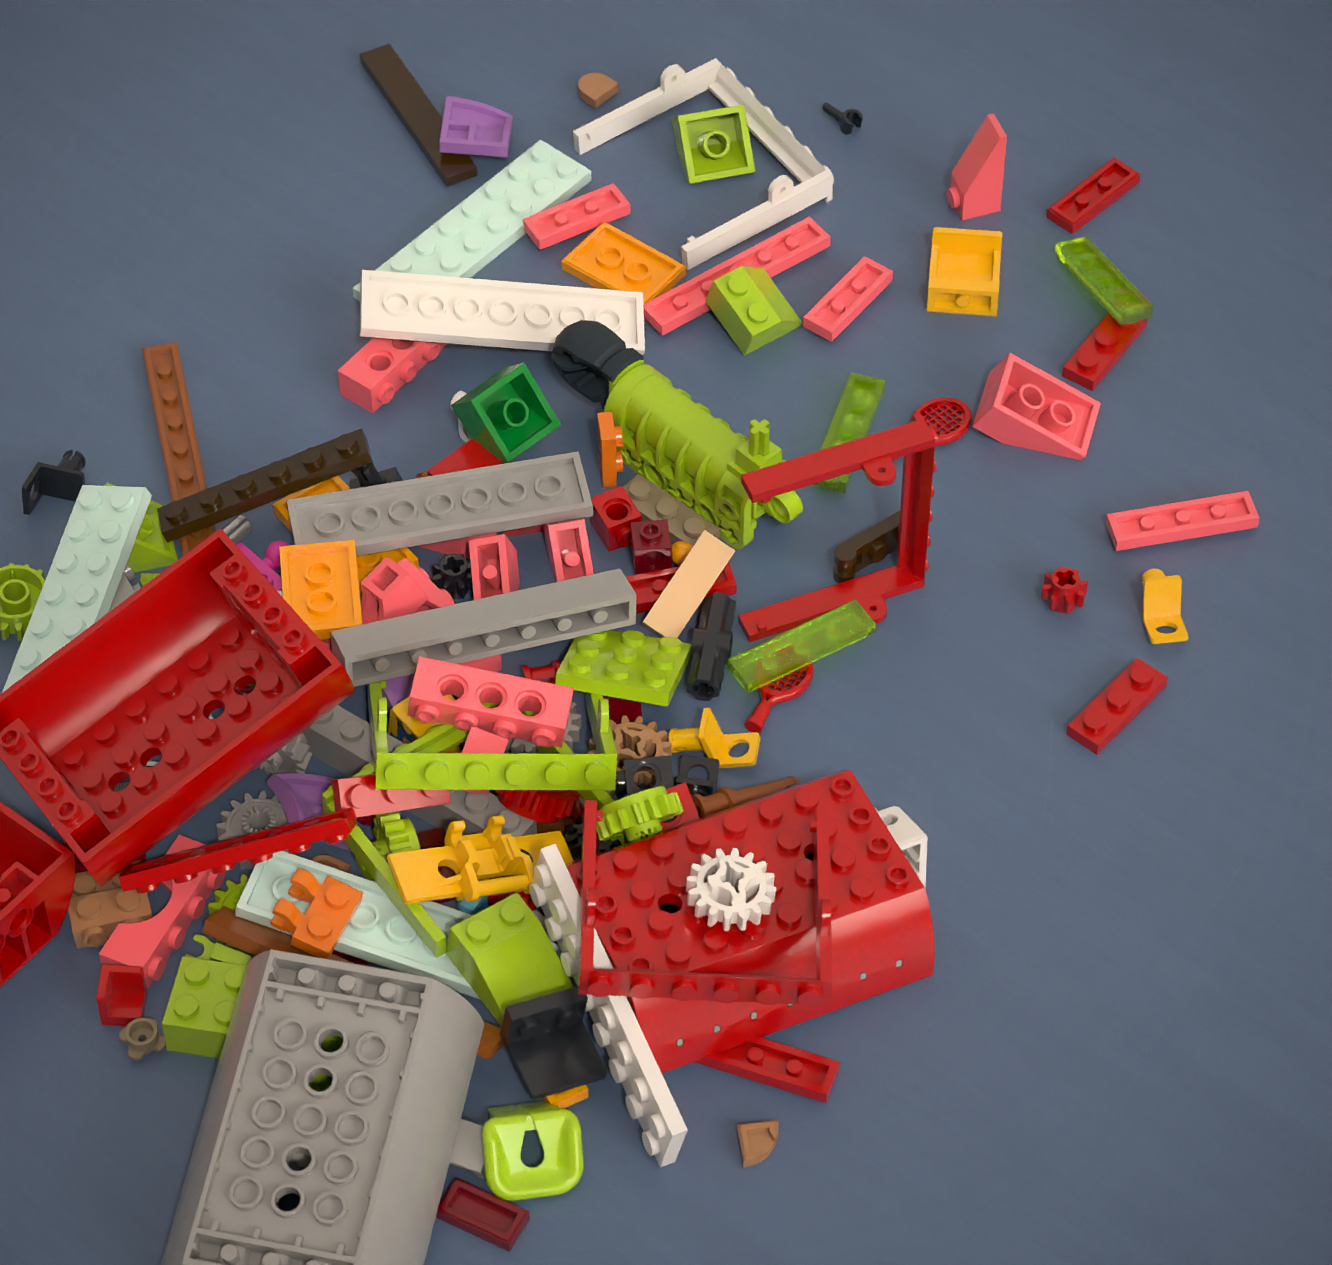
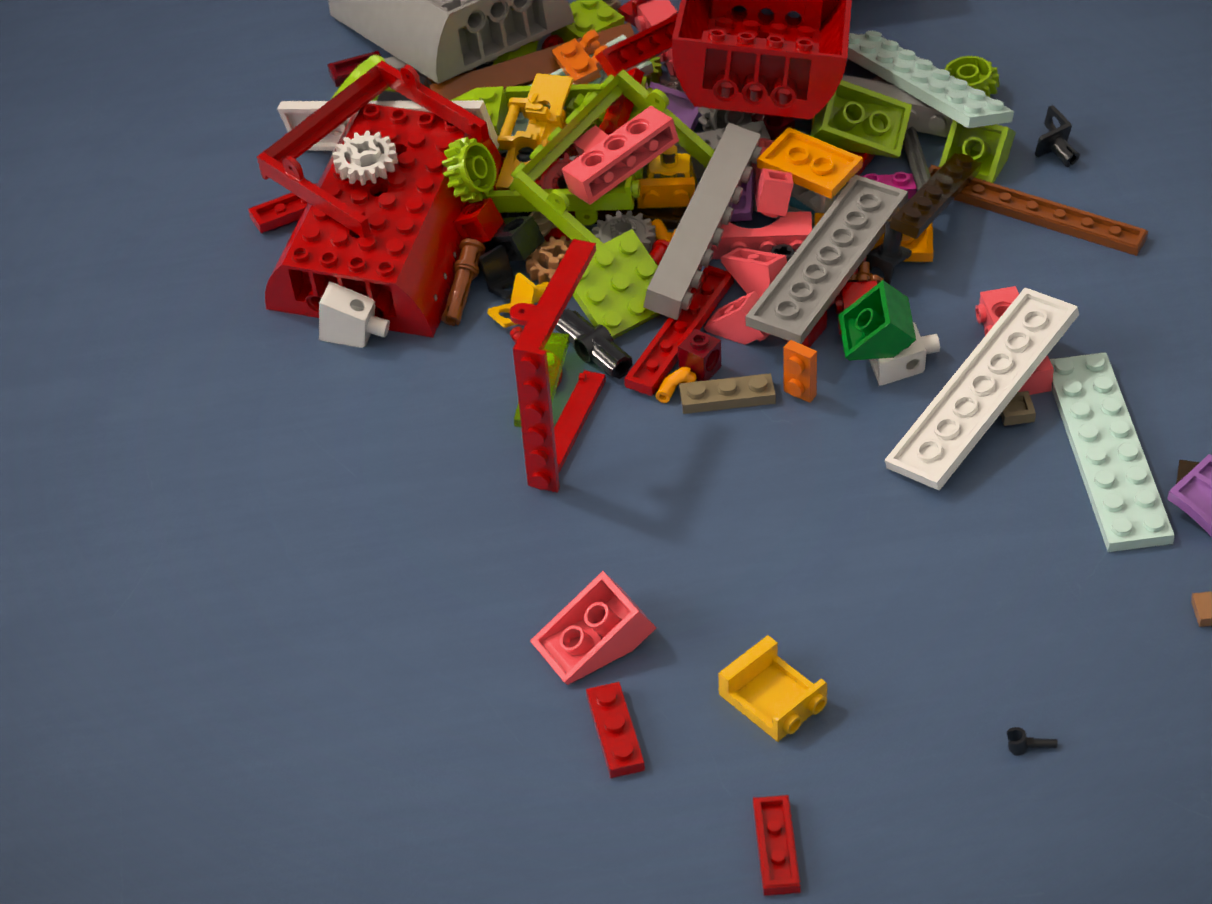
camera: 135 degrees right, 5 degrees down
(576, 216) = (1064, 507): coral plate -> none
(612, 517) = (744, 356): red brick -> none
(623, 263) = (988, 509): light orange tile -> none
(670, 435) = (763, 402): lime piece -> none
(688, 586) = (643, 347): tan tile -> none
(713, 144) = (1071, 629): lime slope -> none
(751, 308) = (858, 532): lime slope -> none
(757, 1141) = (261, 185): medium nougat tile -> none
(772, 254) = (909, 560): coral plate -> none
(782, 196) = (1055, 676): white piece -> none
(848, 298) = (819, 605): coral plate -> none
(853, 419) = (693, 521): clear neon green plate -> none
(866, 548) = (578, 467): dark brown plate -> none
(948, 403) = (651, 561): red piece -> none
(979, 172) = (848, 747): coral slope -> none
(1064, 590) = (431, 535): red gear -> none
(1104, 280) = (666, 755): clear neon green plate -> none
(1117, 706) = (322, 508): red plate -> none
(1162, 606) = (361, 575): yellow bracket -> none
(1182, 520) = (410, 644): coral plate -> none

